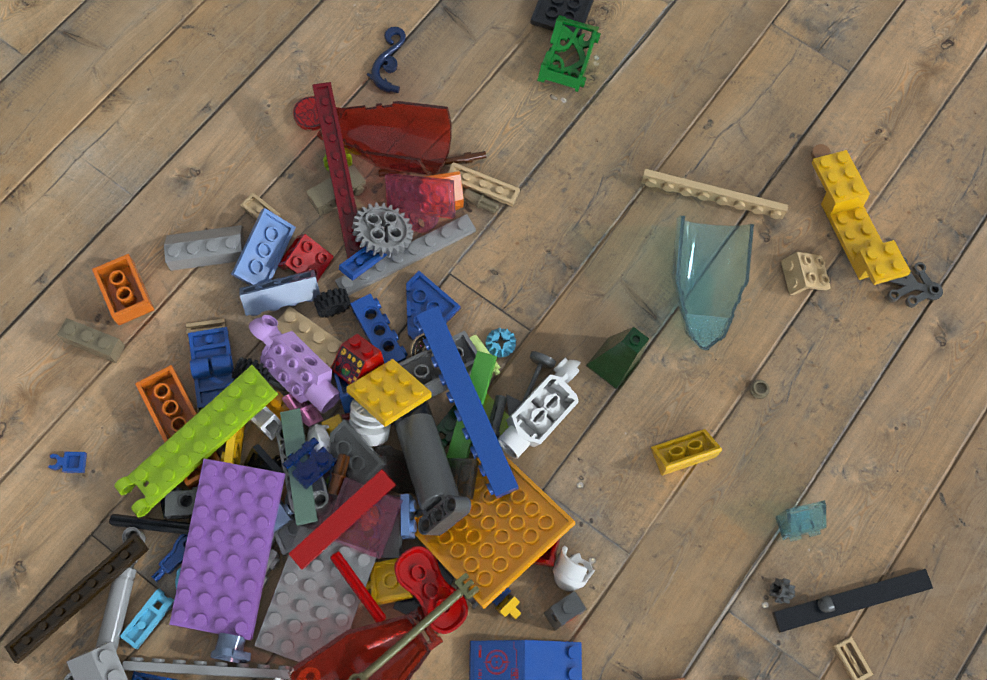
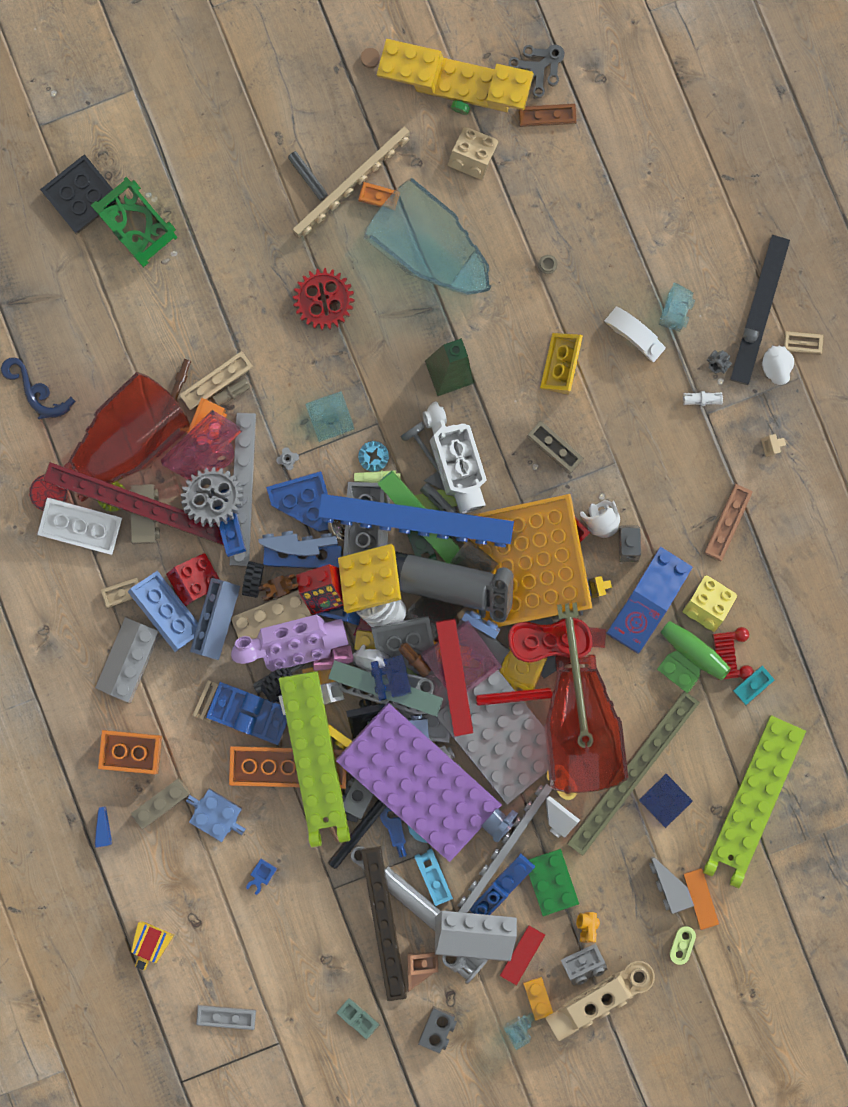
camera: 55 degrees left, 15 degrees up
(44, 306) = (103, 832): none -> blue slope
(51, 657) = (421, 967): none -> nougat slope
(105, 392) = (215, 815): none -> medium blue plate
(296, 148) = (79, 526): none -> white plate
(337, 326) = (278, 587): none -> reddish brown pin
(380, 313) = (289, 543): none -> sand blue slope
(454, 279) = (287, 453): none -> light grey plate
(461, 635) = (598, 637): none -> clear red plate
(511, 286) = (330, 416): none -> clear light blue slope
(608, 489) = (555, 447): none -> dark tan brick
(617, 237) = (340, 295): none -> red gear
(695, 158) = (307, 175): none -> dark grey axle
(715, 215) = (374, 194): none -> orange plate
(739, 597) = (702, 398): none -> white pin
(756, 499) = (635, 332): none -> white arch
(817, 647) = (778, 364): none -> white hair
(834, 242) = (460, 107): none -> green tile
(880, 315) = (547, 115): none -> dark orange tile

